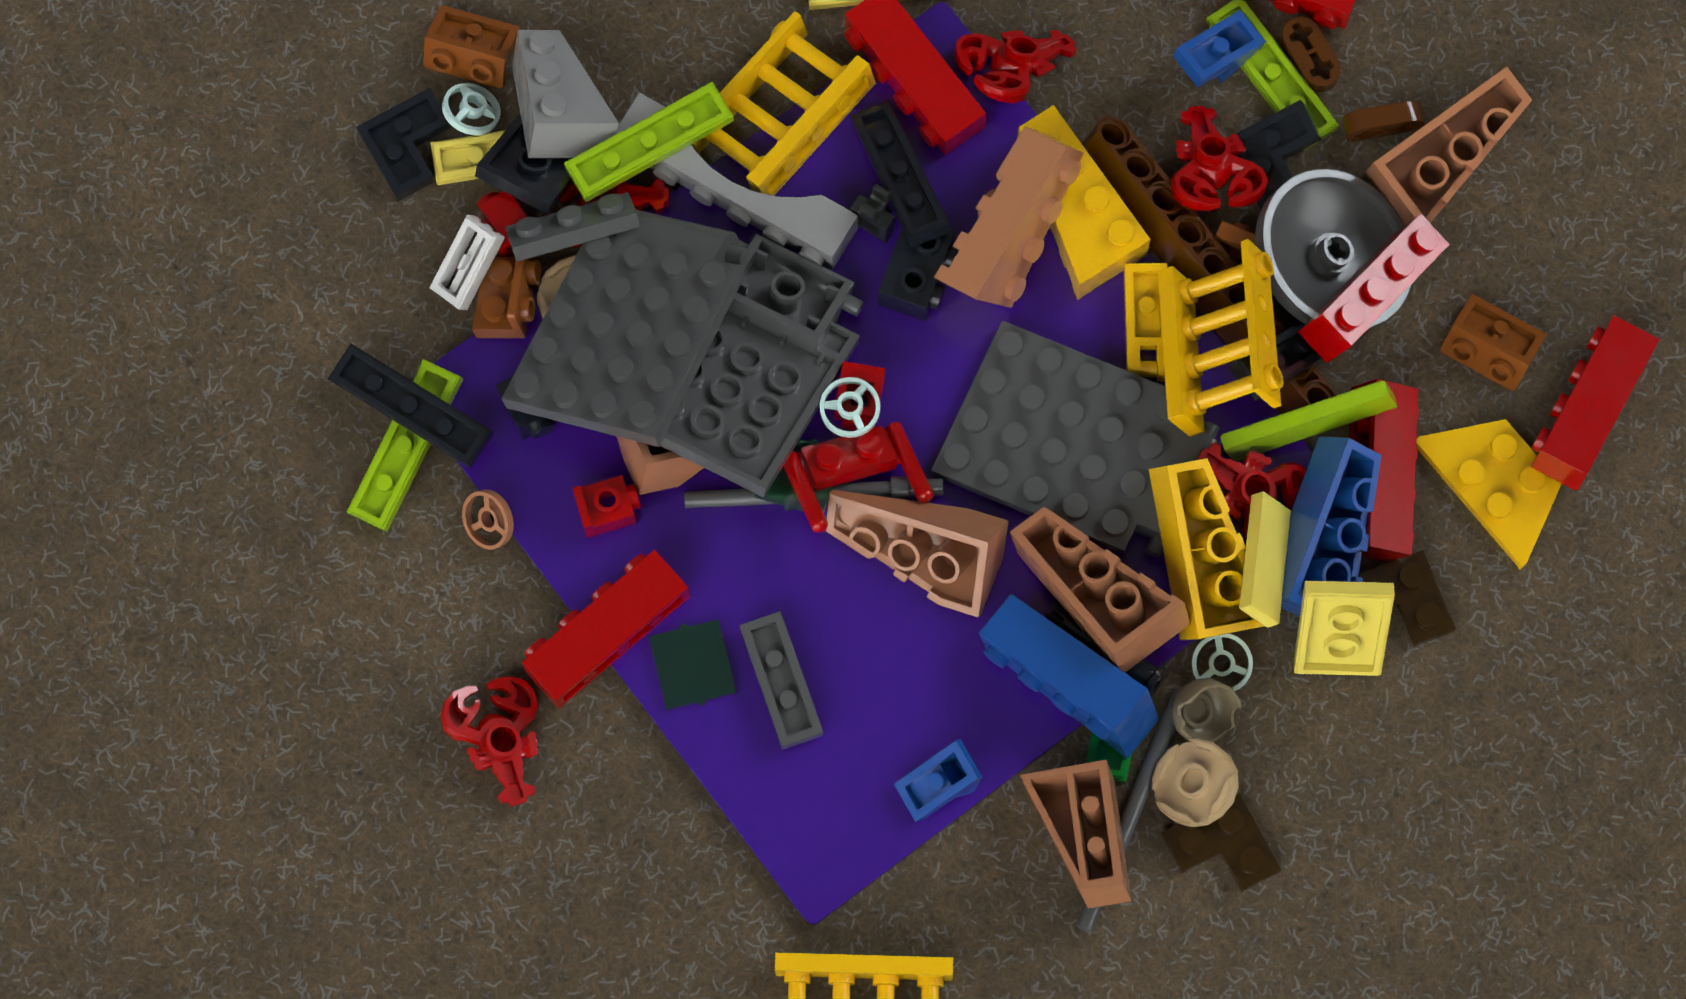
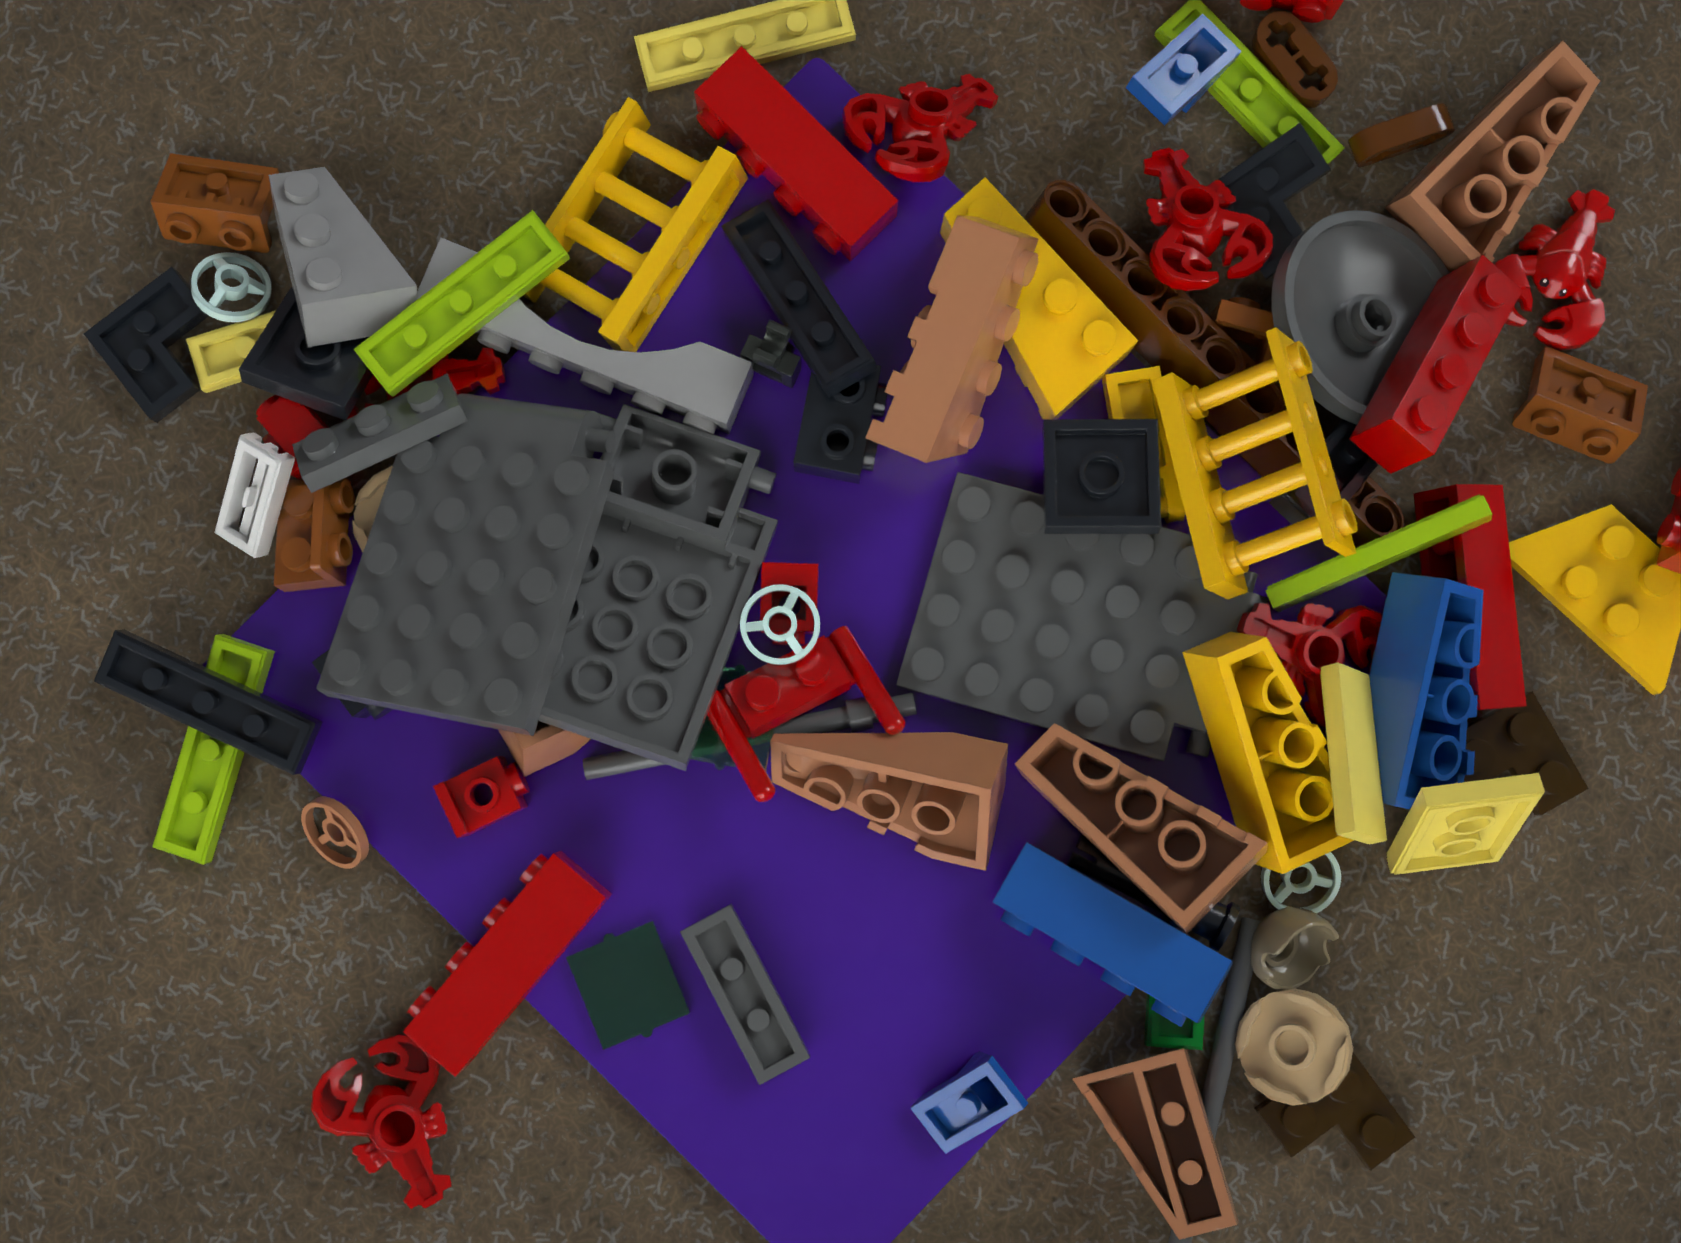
camera: 15 degrees left, 10 degrees up
(1107, 334) = (1101, 476): none -> black plate
(1491, 240) = (1561, 271): none -> red animal

